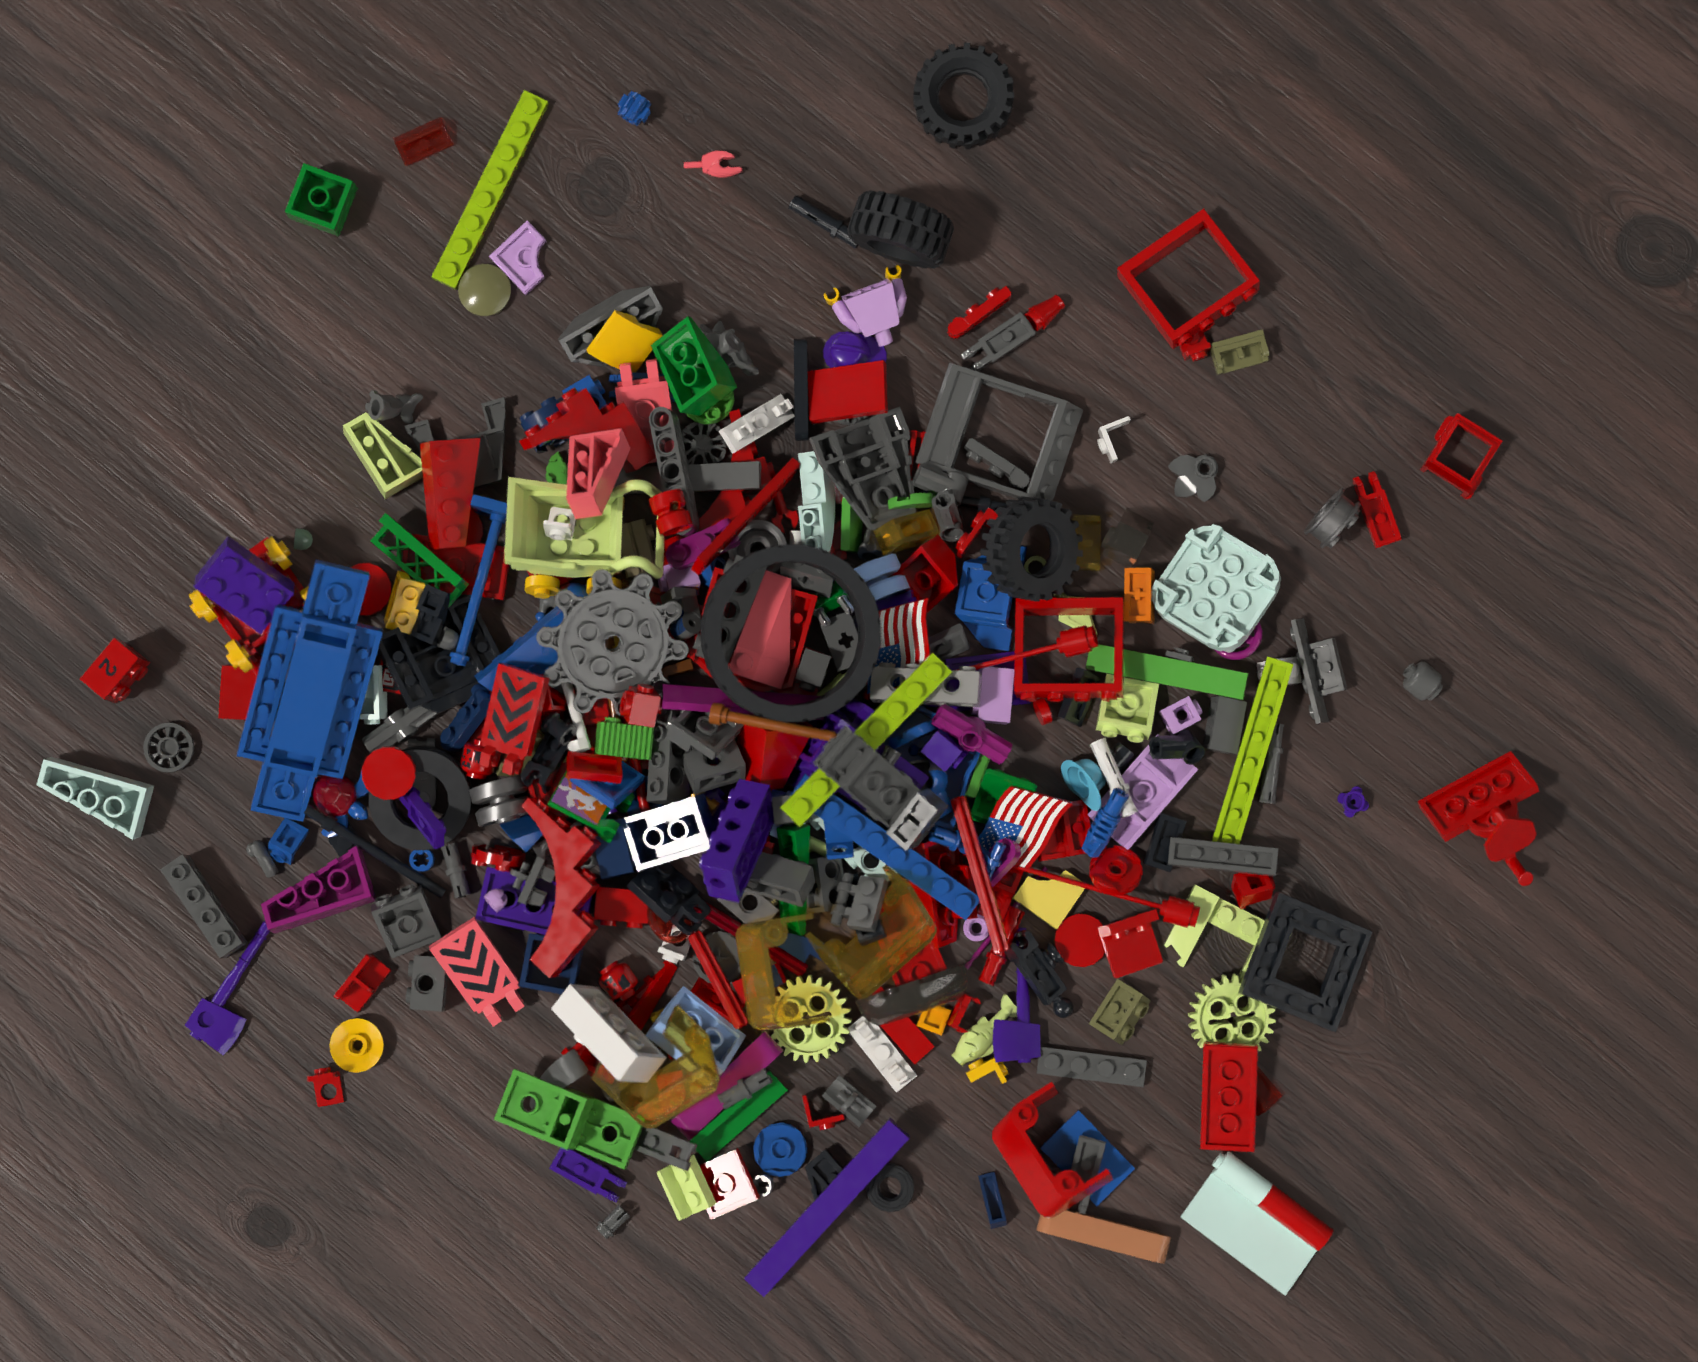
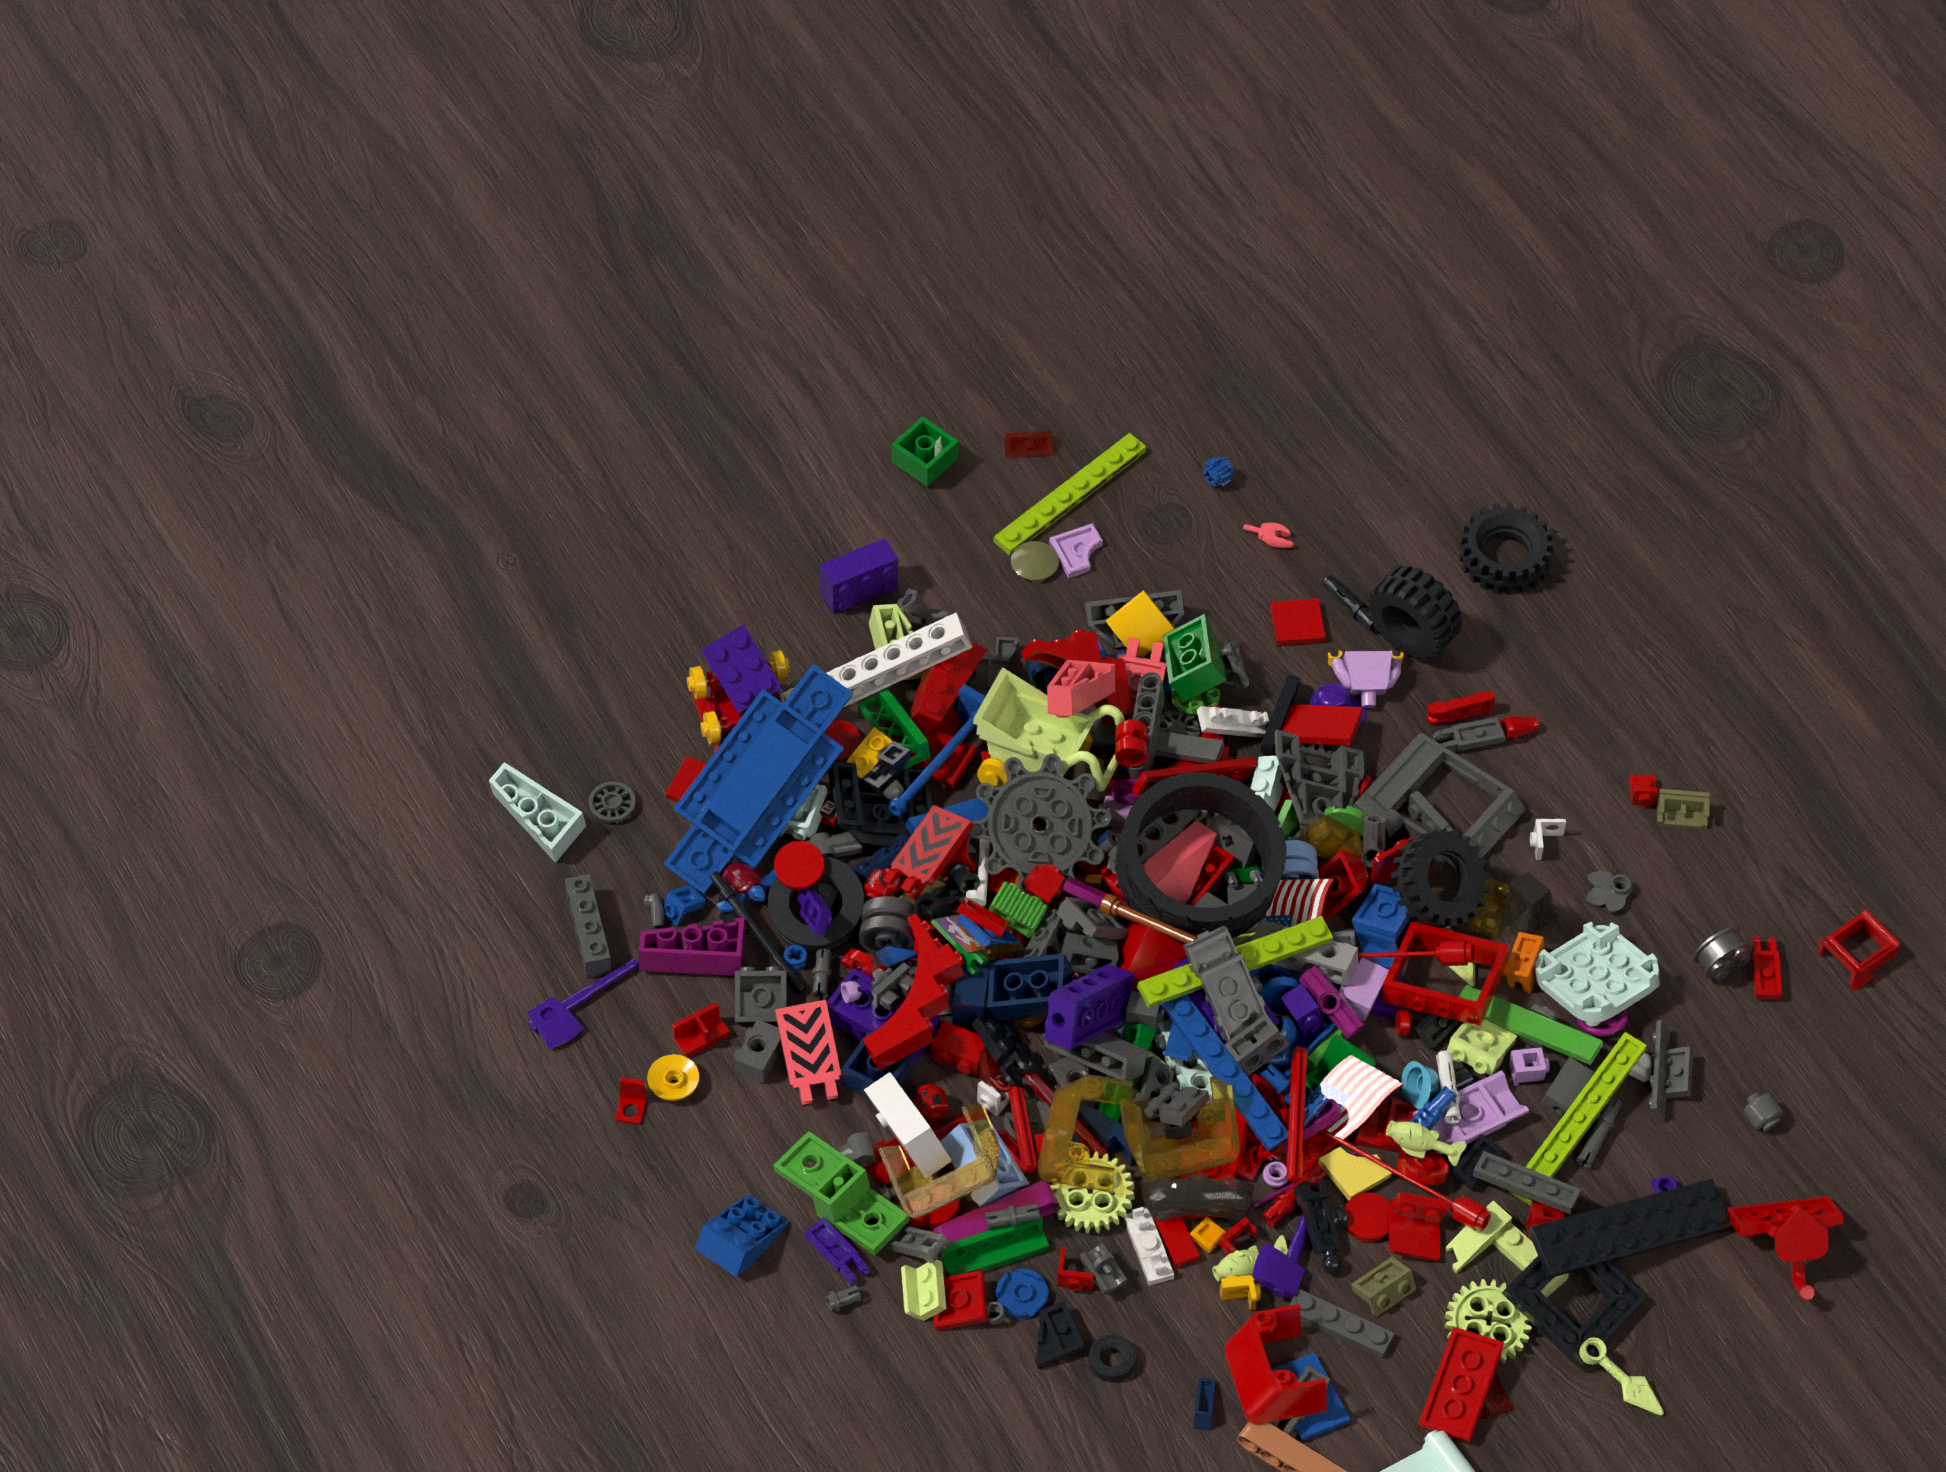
camera: 15 degrees right, 30 degrees down
(115, 671) = (595, 723): red brick -> none
(313, 387) = (859, 576): none -> dark purple brick
(447, 459) = (901, 658): none -> white brick
(489, 1190) = (740, 1234): none -> blue slope
(559, 530) = (1029, 724): white bracket -> none
(629, 802) = (1004, 951): none -> dark brown axle
(779, 264) = (1297, 622): none -> red tile
(826, 1207) = (1048, 1343): dark purple tile -> none
(1104, 852) = (1418, 1139): none -> yellowish green animal
(1166, 245) = (1652, 709): red window -> none
(1180, 746) = (1514, 1084): black piece -> none
(1337, 871) = (1629, 1228): none -> black plate
(1392, 1035) = (1635, 1388): none -> yellowish green piece

